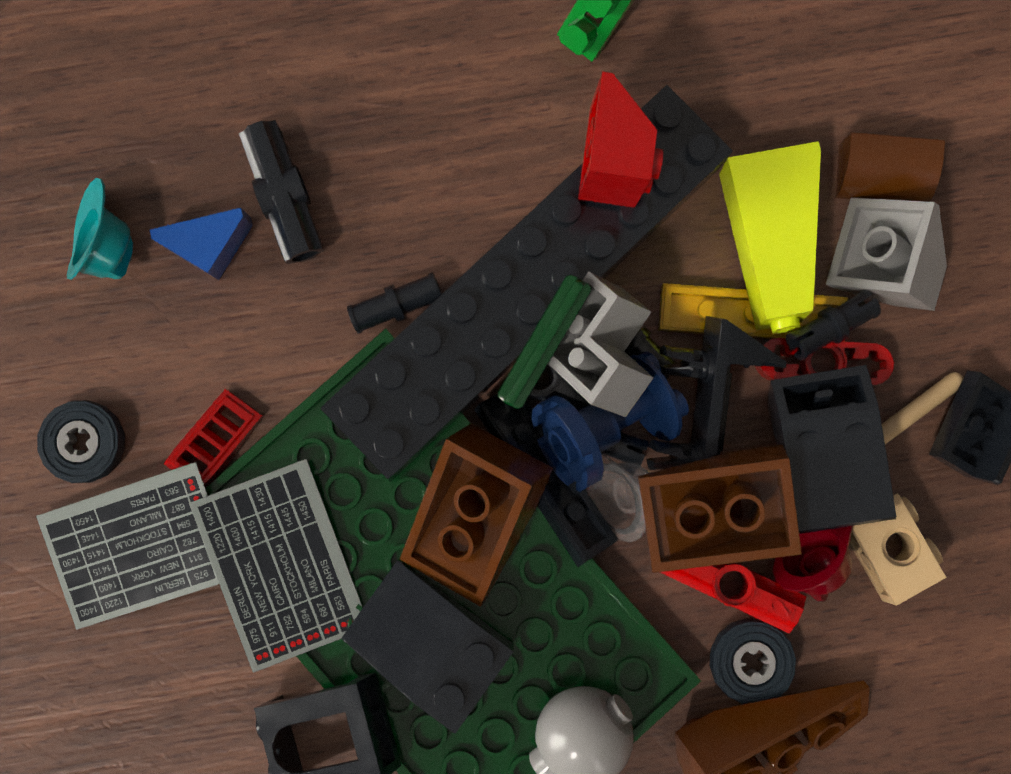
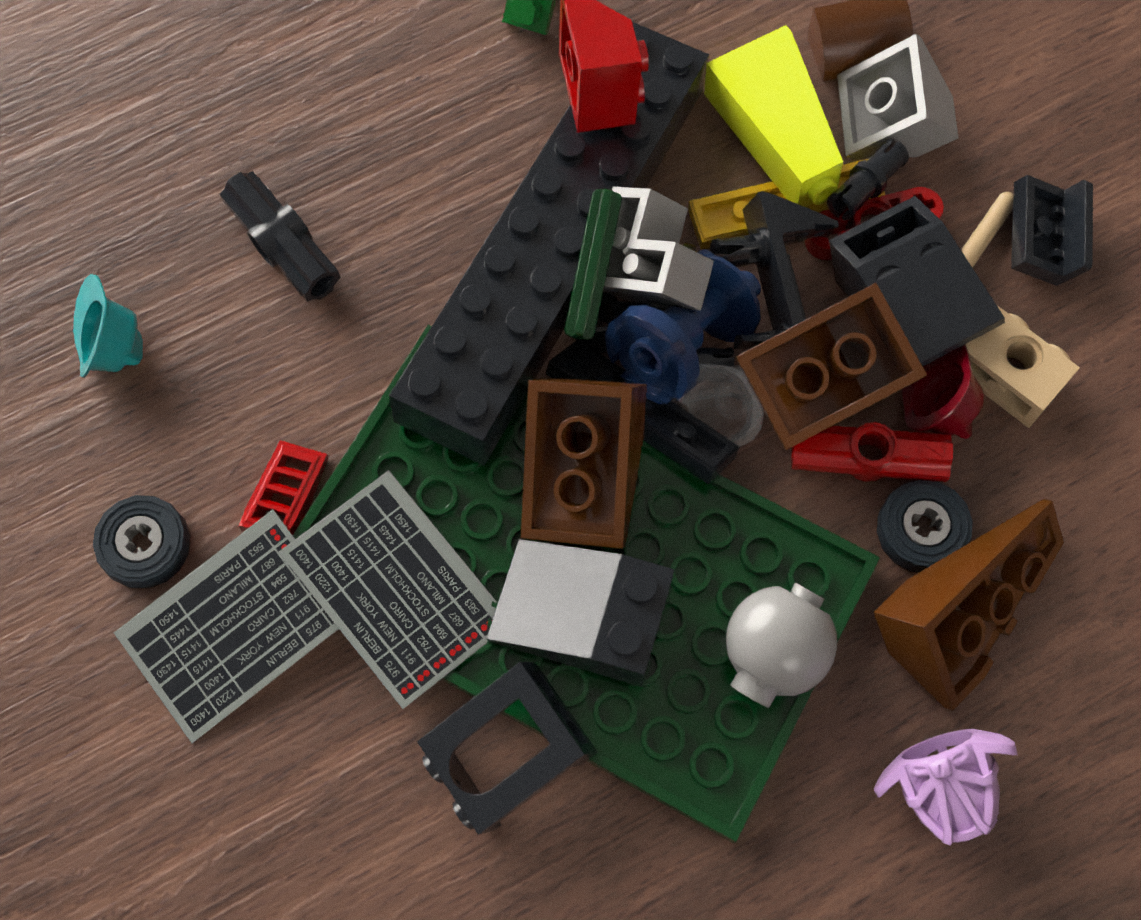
camera: 20 degrees left, 15 degrees down
(206, 240) = (214, 303): blue slope -> none
(394, 303) = (425, 304): black pin -> none

